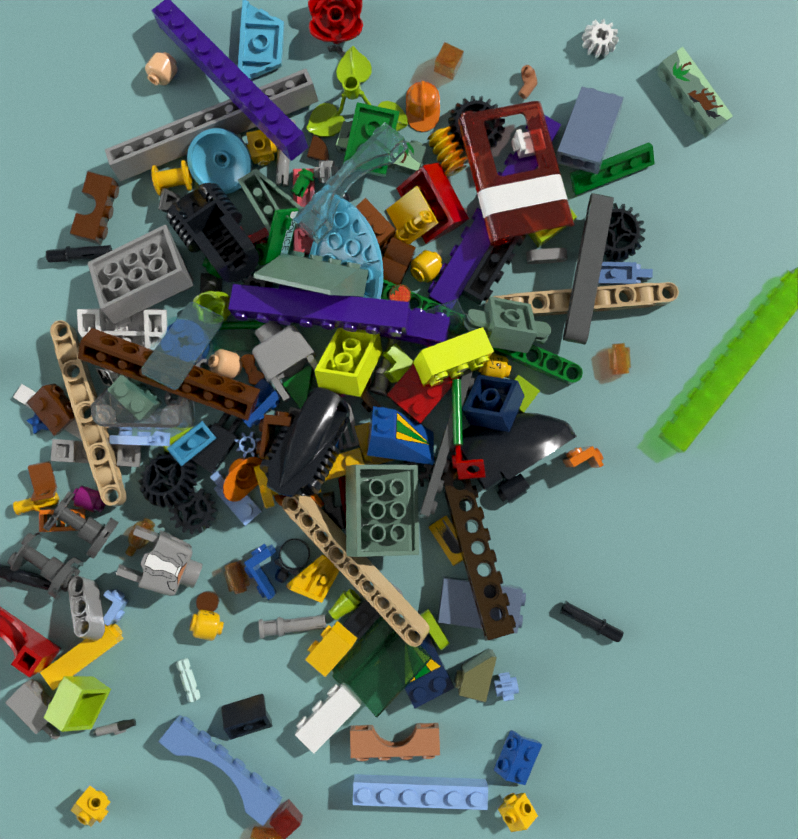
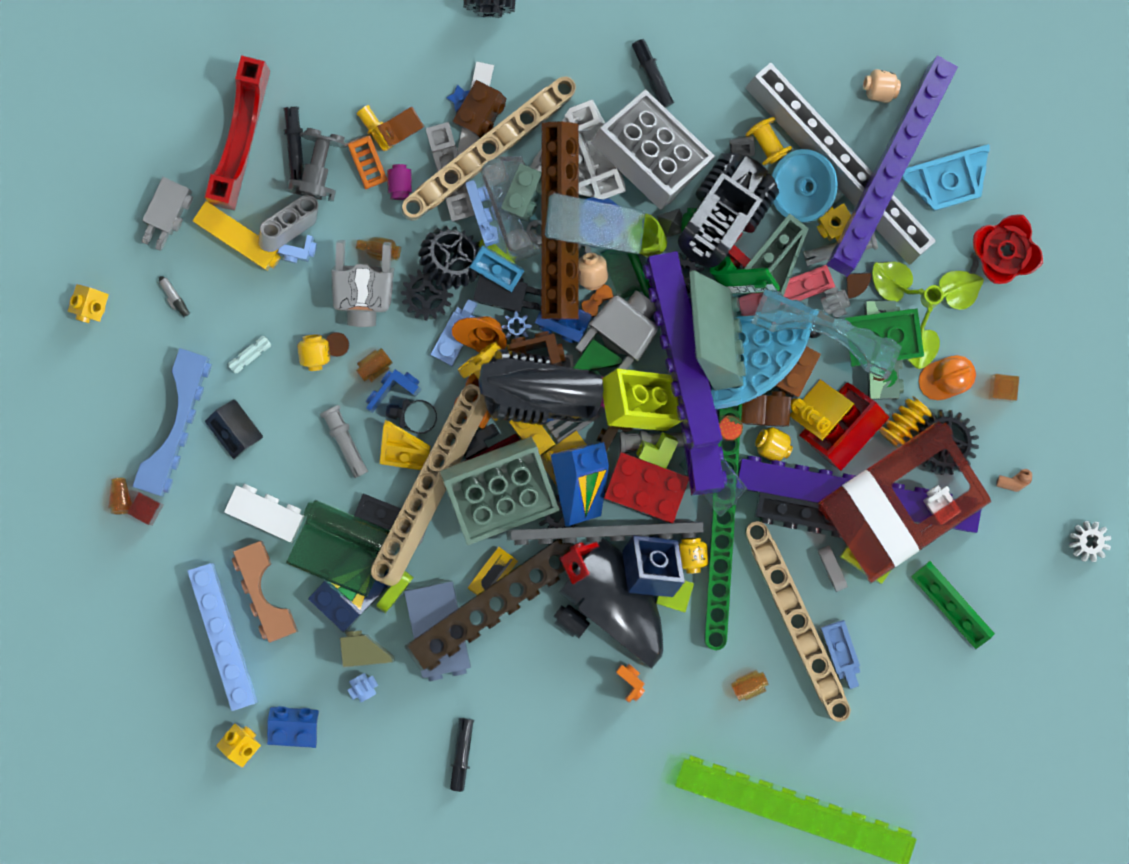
camera: 75 degrees right, 0 degrees up
(77, 703) = (189, 251): lime piece -> none
(89, 530) = (370, 196): dark grey piece -> none
(94, 225) = (686, 78): reddish brown arch -> none
(105, 377) = (532, 151): sticker -> none
(302, 182) = (813, 281): green pin -> none
(331, 648) = (336, 490): yellow brick -> none
(346, 603) = (386, 488): lime cone -> none
(453, 357) = (683, 506): neon yellow brick -> none
(457, 412) = (628, 531): green bar -> none
(508, 324) = (739, 551): sand green brick -> none
(588, 268) = (830, 615): dark grey beam -> none
(589, 130) = (983, 565): sand blue brick -> none
(633, 235) = (883, 621): black gear -> none
(693, 92) = (1068, 663): sand green brick -> none

